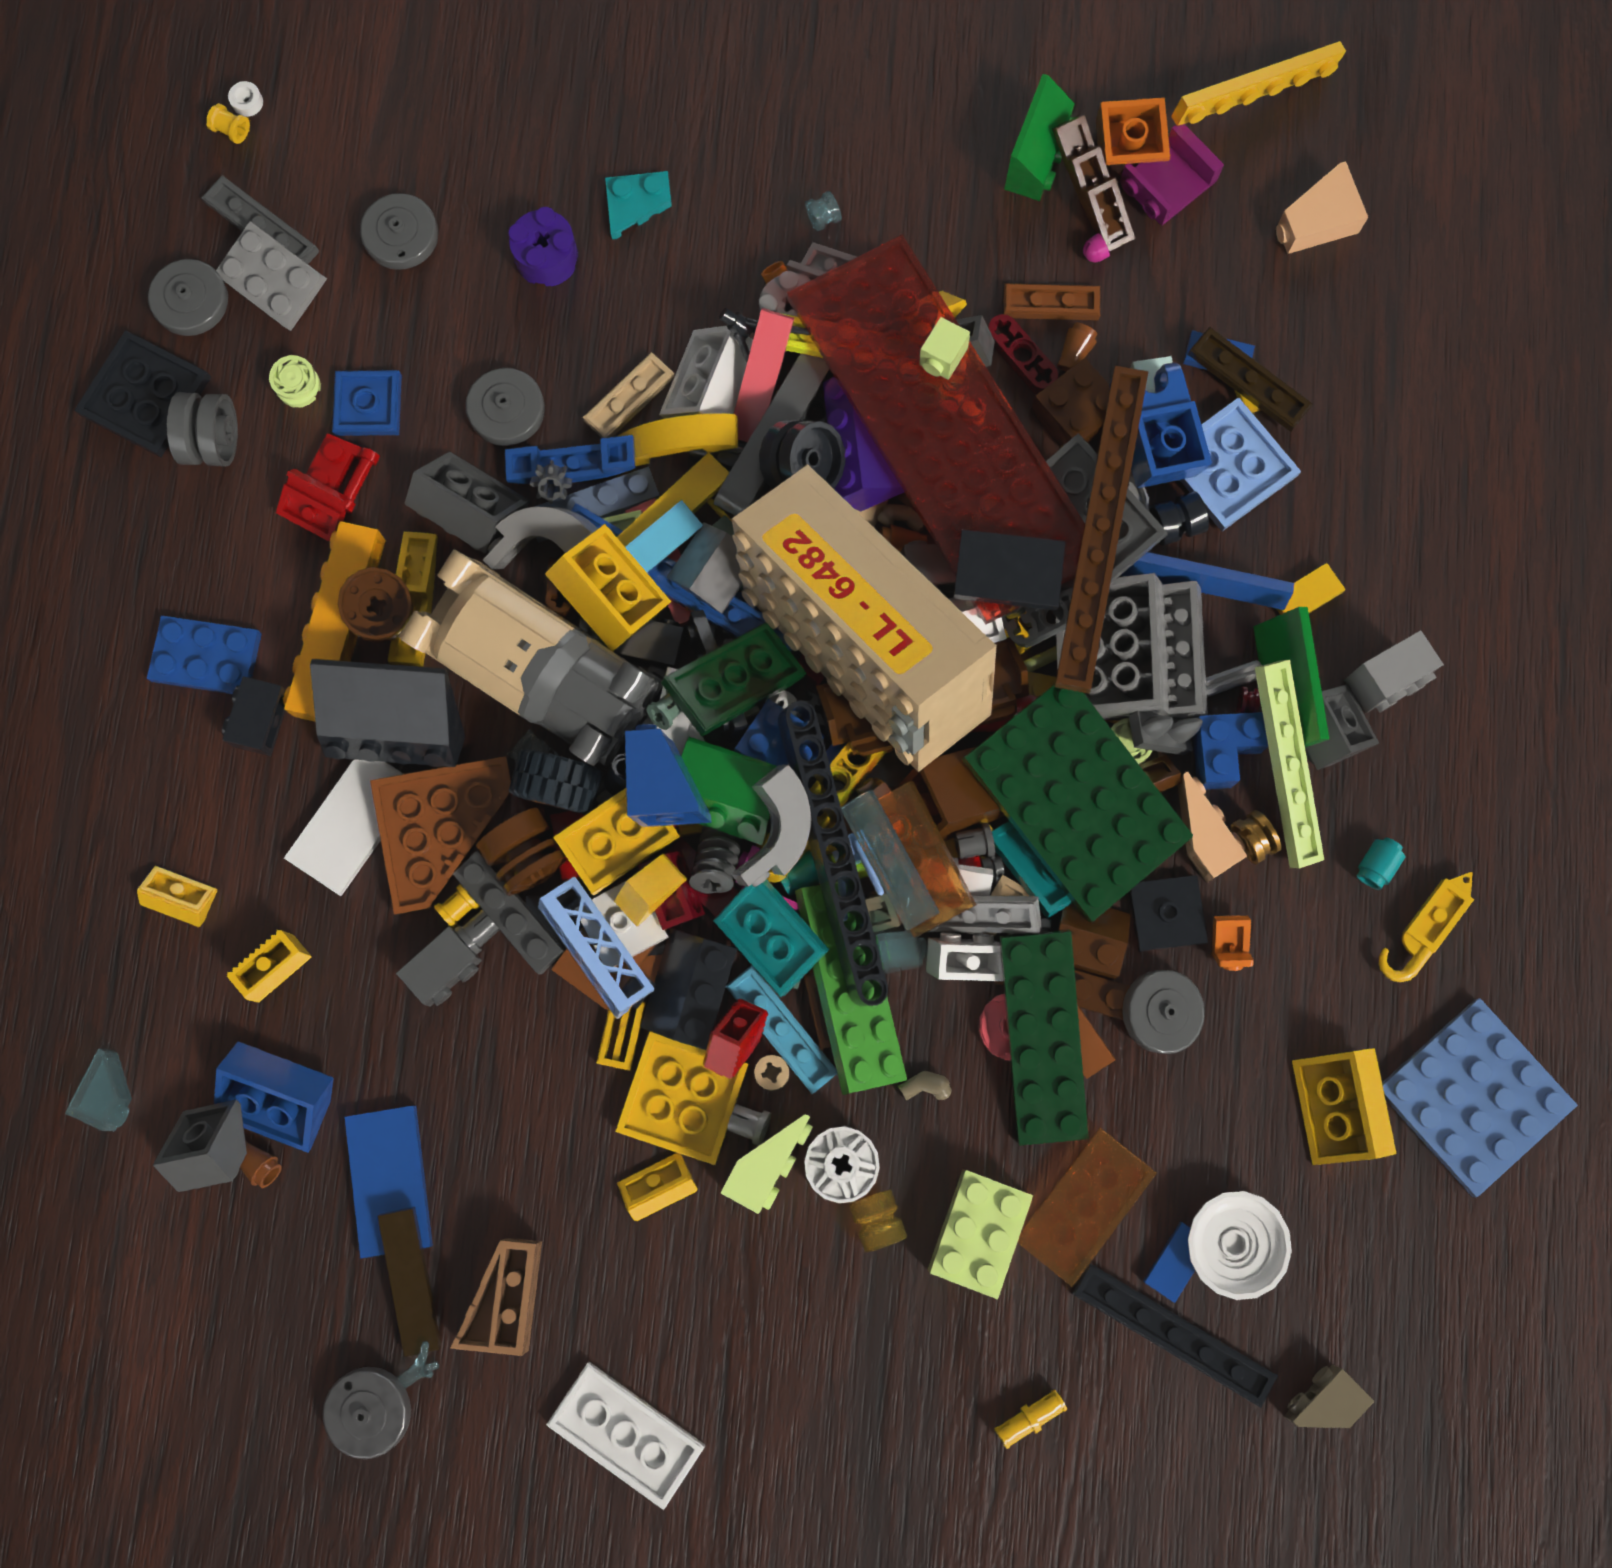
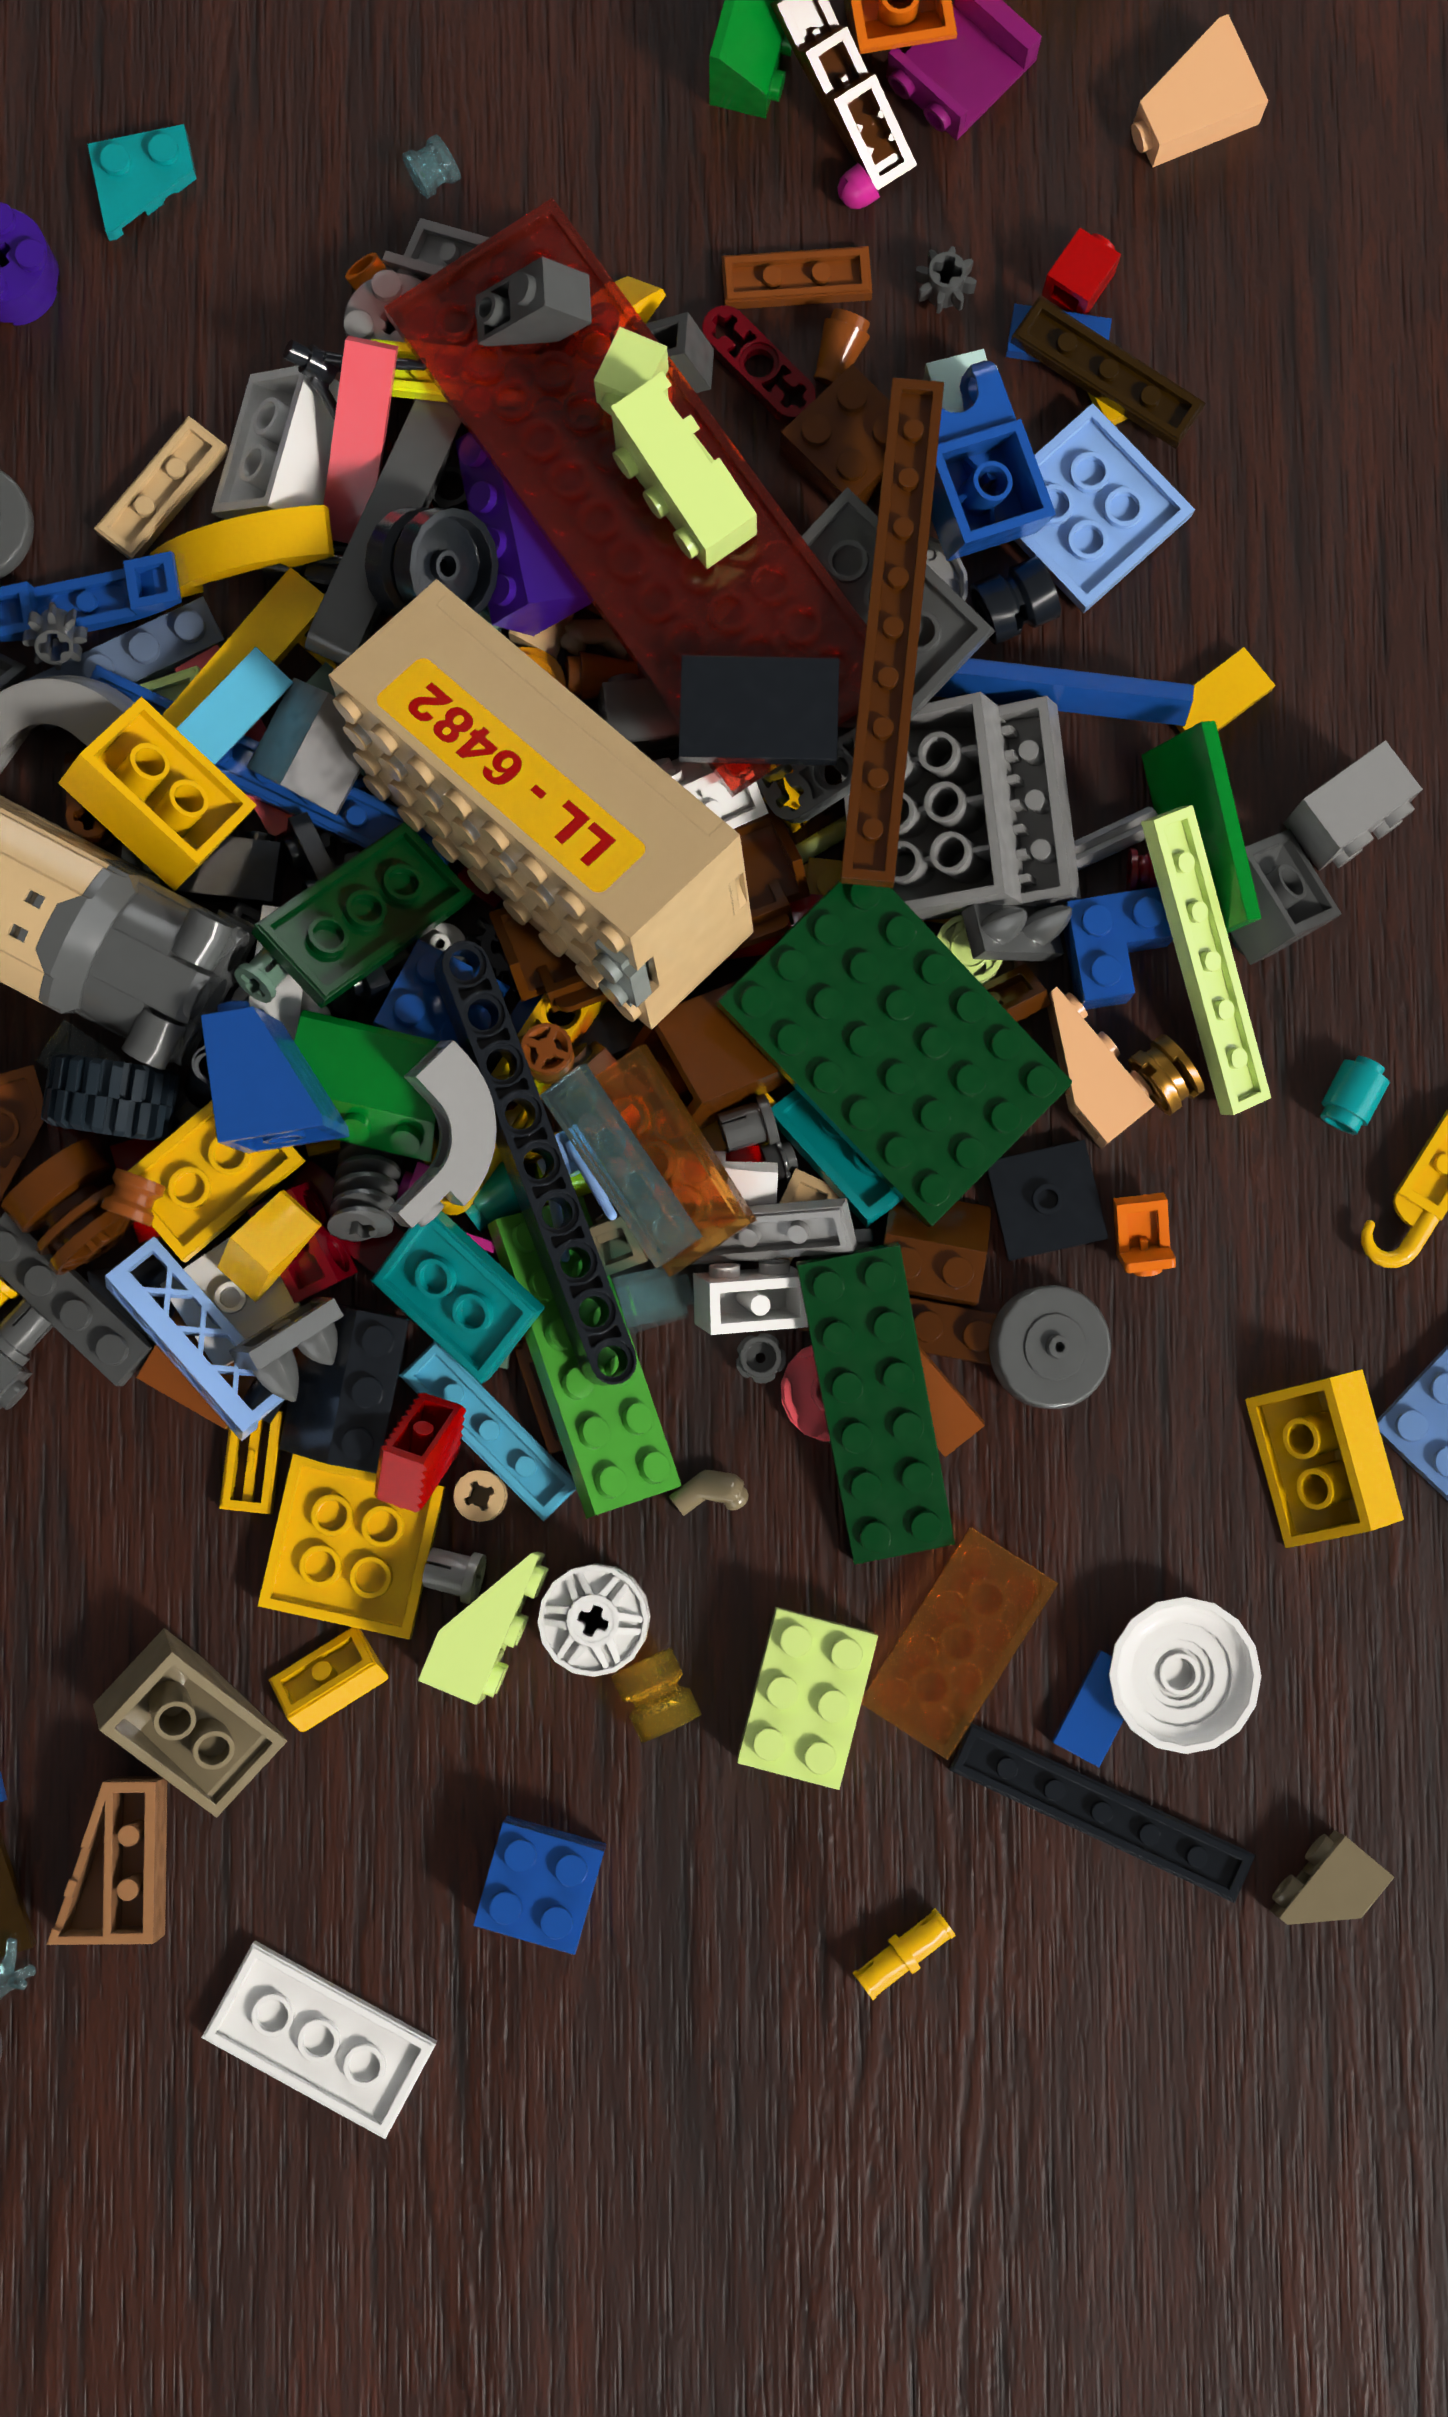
camera: 10 degrees left, 5 degrees up
(560, 1207) = (187, 1723): none -> dark tan slope
(565, 847) = (133, 1197): none -> dark orange wheel
(644, 959) = (271, 1352): none -> dark grey tile
(787, 1344) = (540, 1884): none -> blue brick
(849, 773) = (544, 1043): none -> dark orange wheel
(885, 299) = (534, 305): none -> dark grey slope
(971, 414) = (680, 474): none -> yellowish green wedge
(971, 990) = (765, 1344): none -> dark grey plate
(1149, 302) = (945, 265): none -> dark grey gear
(1237, 314) = (1081, 272): none -> red brick

